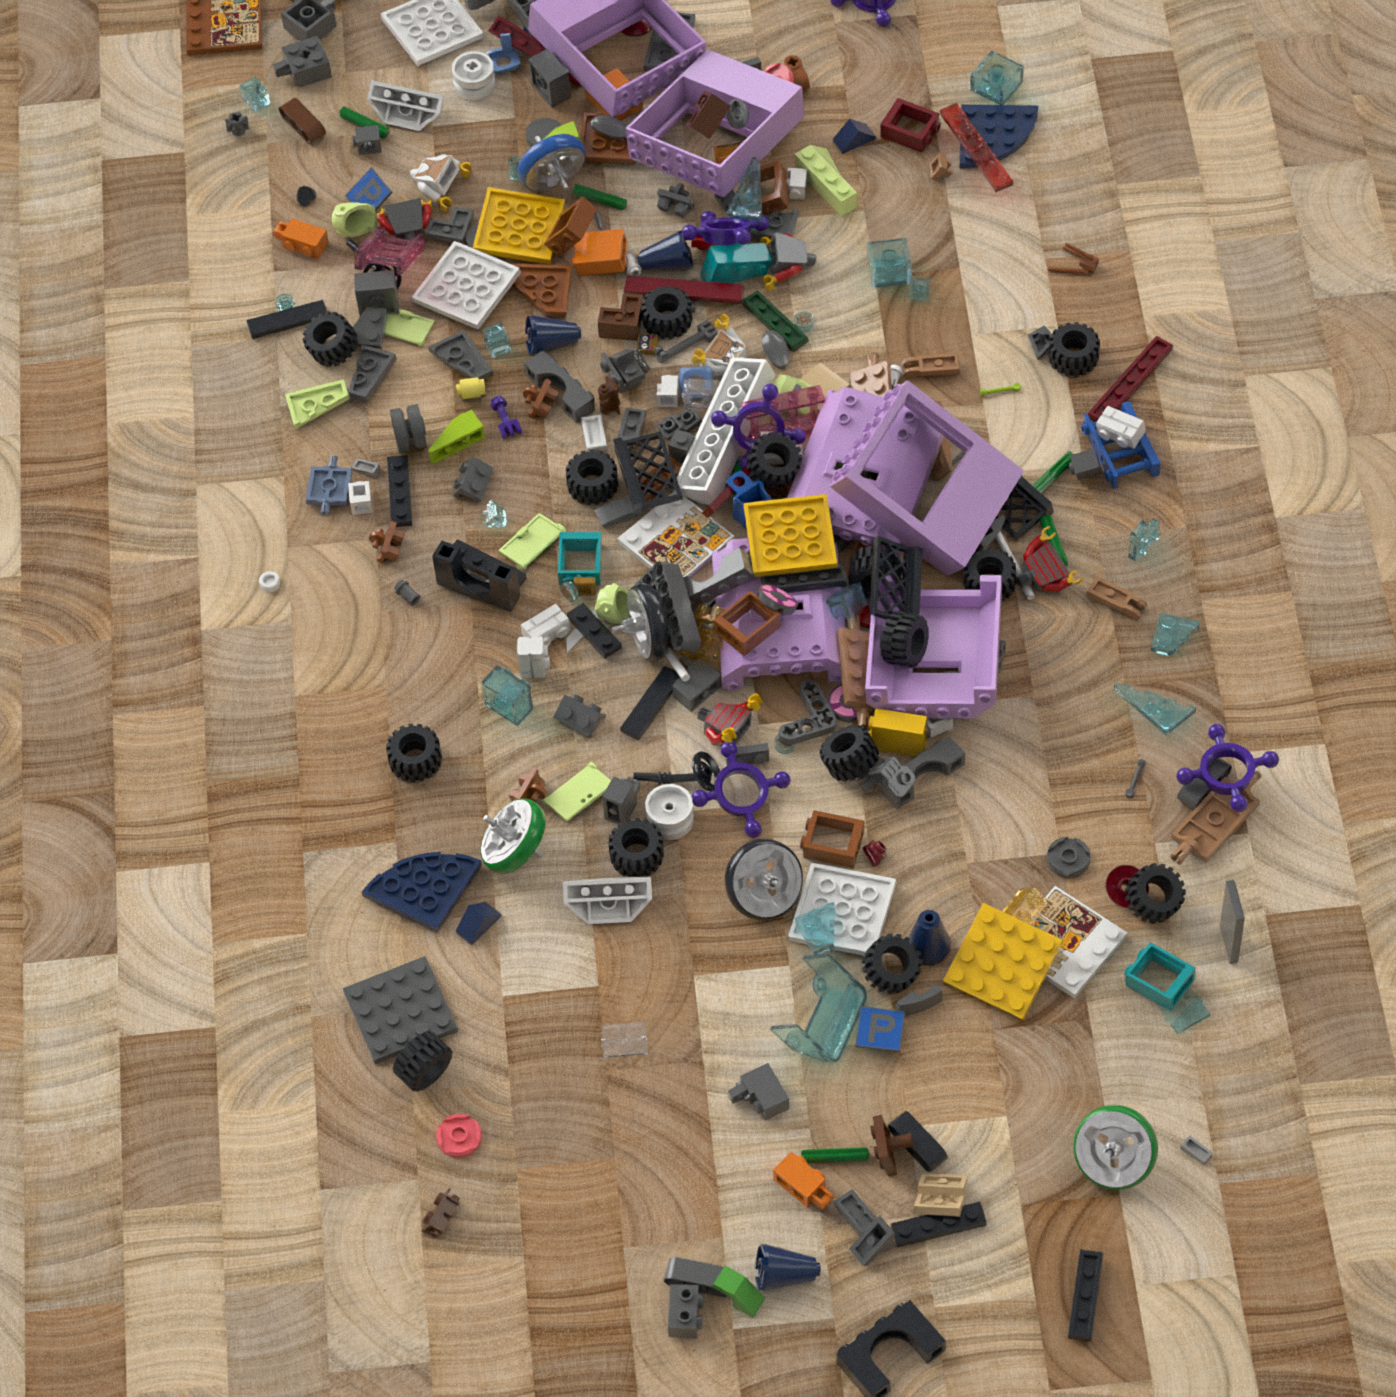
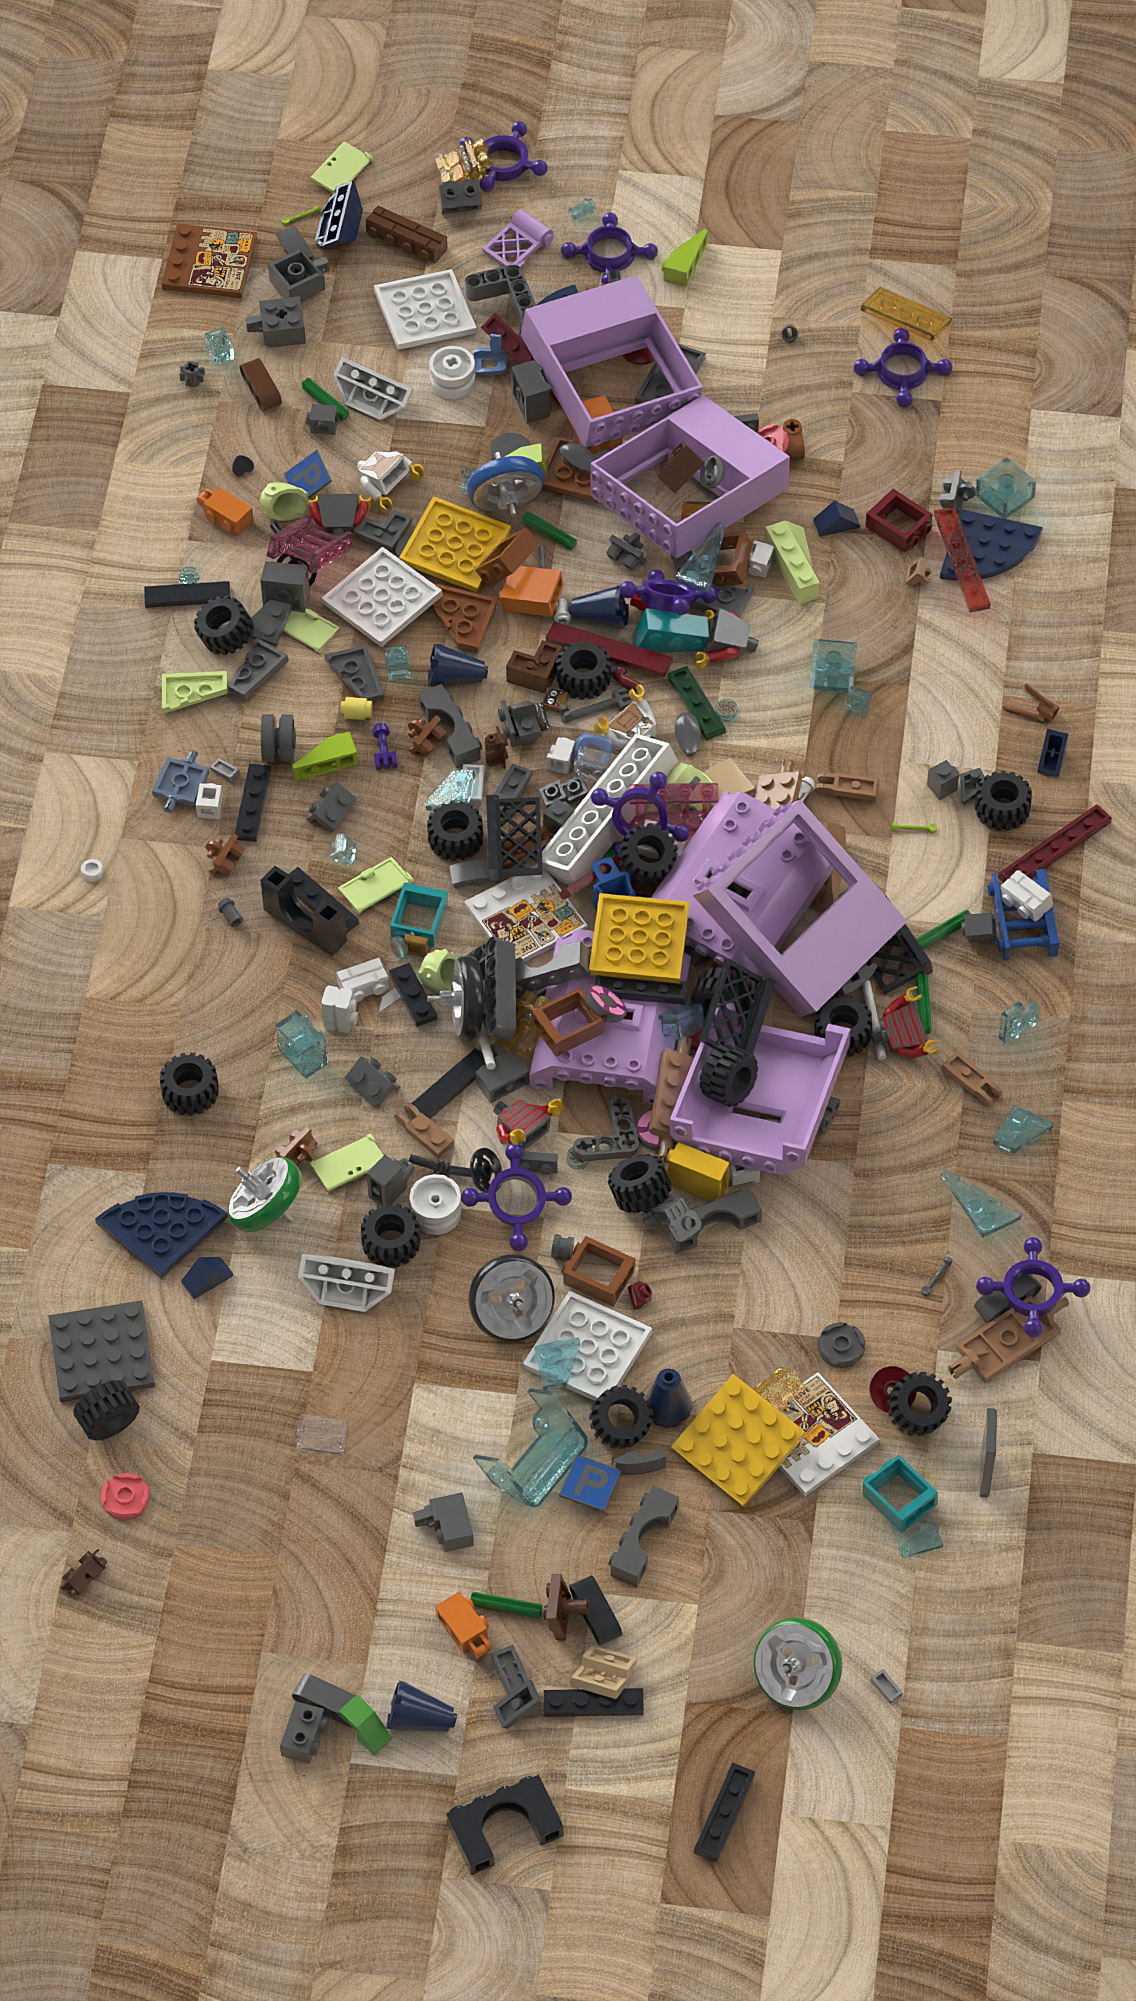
camera: 10 degrees right, 0 degrees up
(580, 438) = (455, 788): none -> clear light blue wing
(639, 749) = (425, 1131): none -> medium nougat hinge
(701, 312) = (620, 676): none -> dark red arm
(794, 825) = (562, 1247): none -> dark grey wheel
(947, 1041) = (656, 1512): none -> dark grey arch
(956, 89) = (959, 491): none -> dark grey hips
(1015, 342) = (943, 779): none -> dark grey brick
(1105, 298) = (1053, 752): none -> dark blue slope

